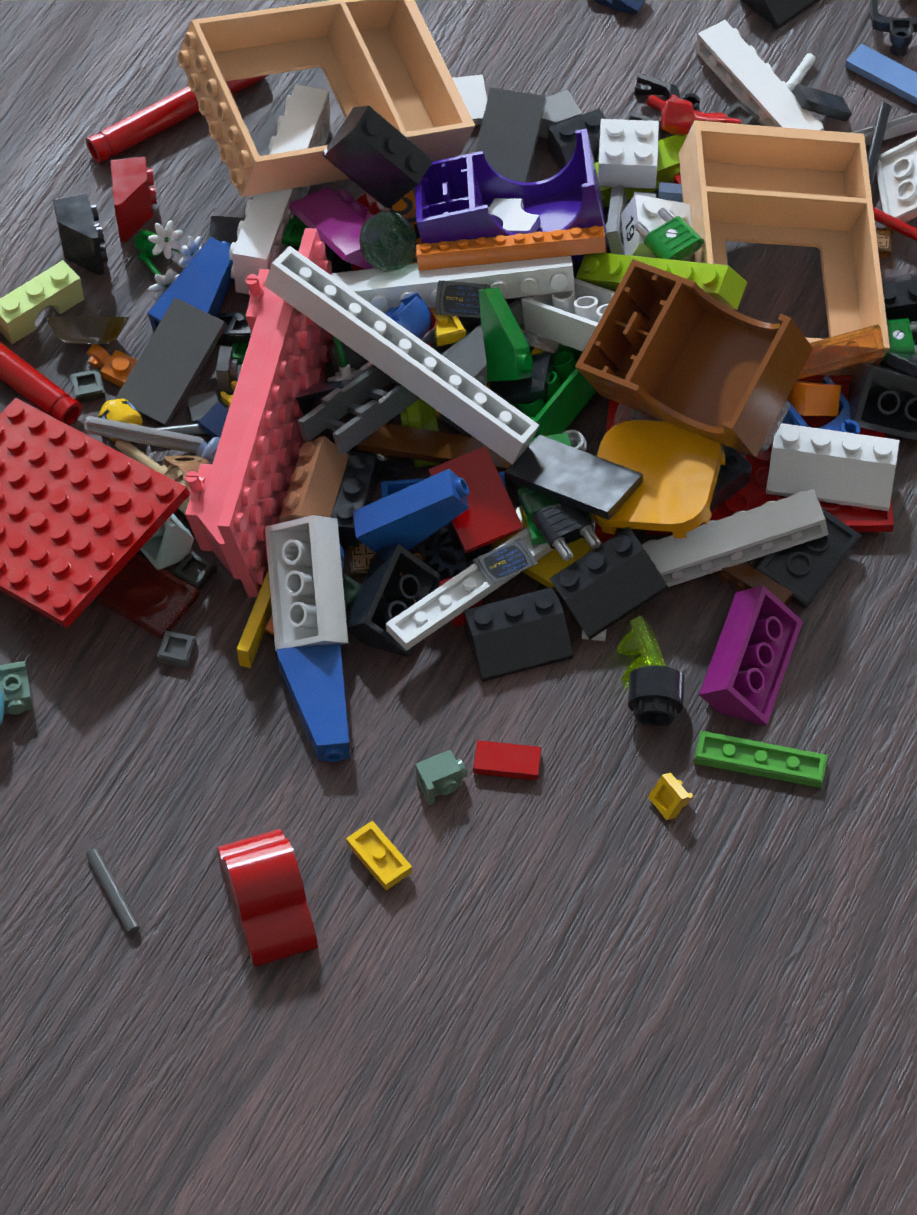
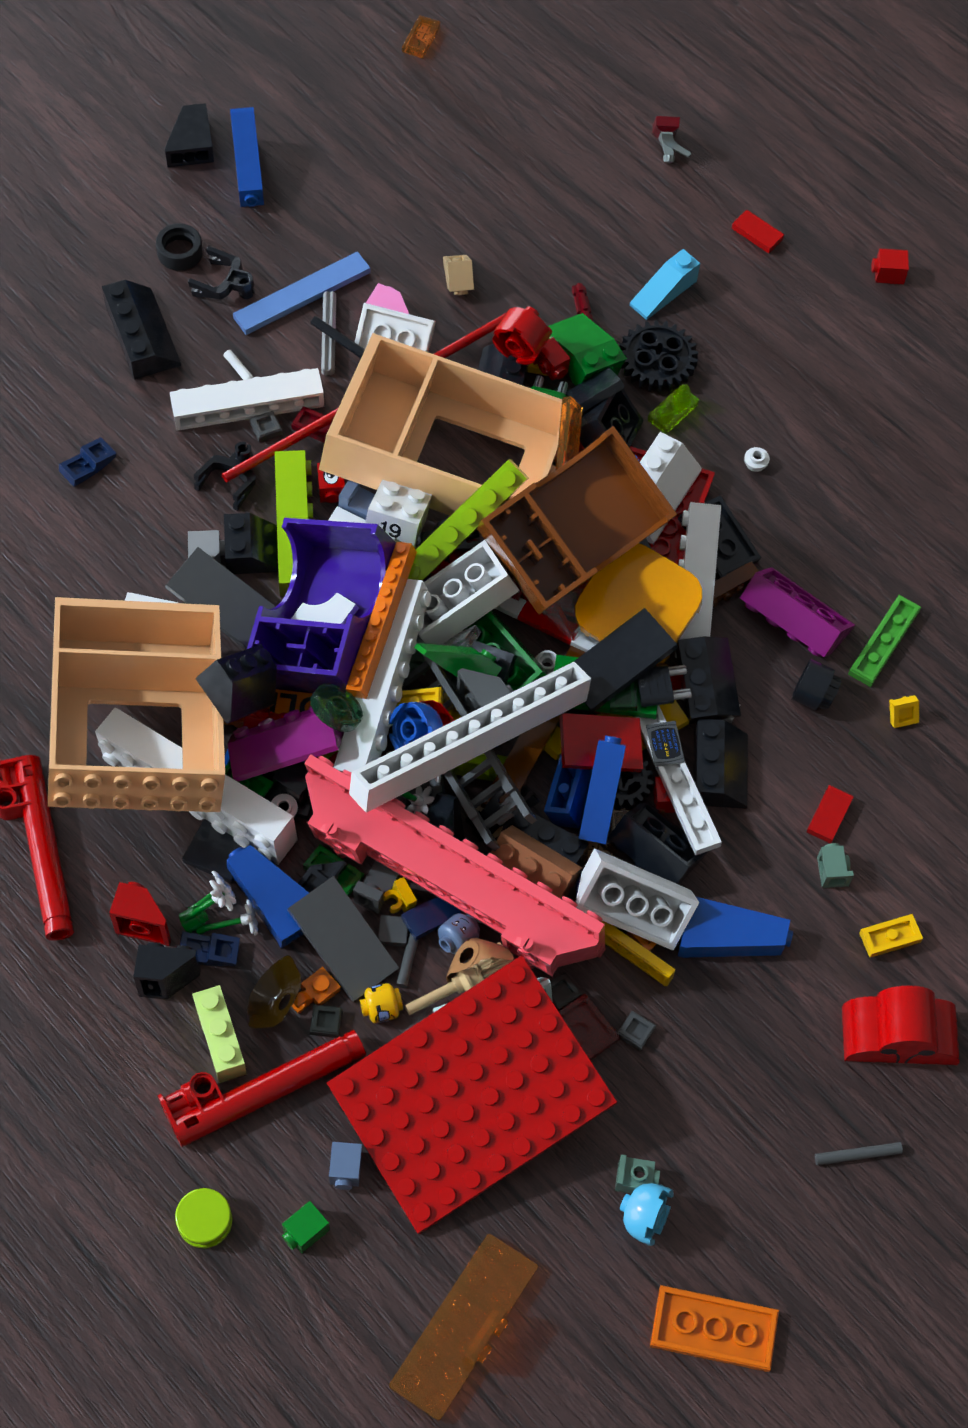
camera: 75 degrees left, 5 degrees up
(125, 268) = (213, 950): none -> dark blue slope
(142, 434) = (412, 986): light grey axle -> none
(458, 298) = (410, 676): sticker -> none
(628, 153) = (288, 499): white brick -> none
(640, 641) = (780, 682): clear neon green tile -> none
(671, 240) = (431, 499): green piece -> none
(679, 116) = (269, 456): red animal -> none
(822, 102) = (287, 360): black tile -> none

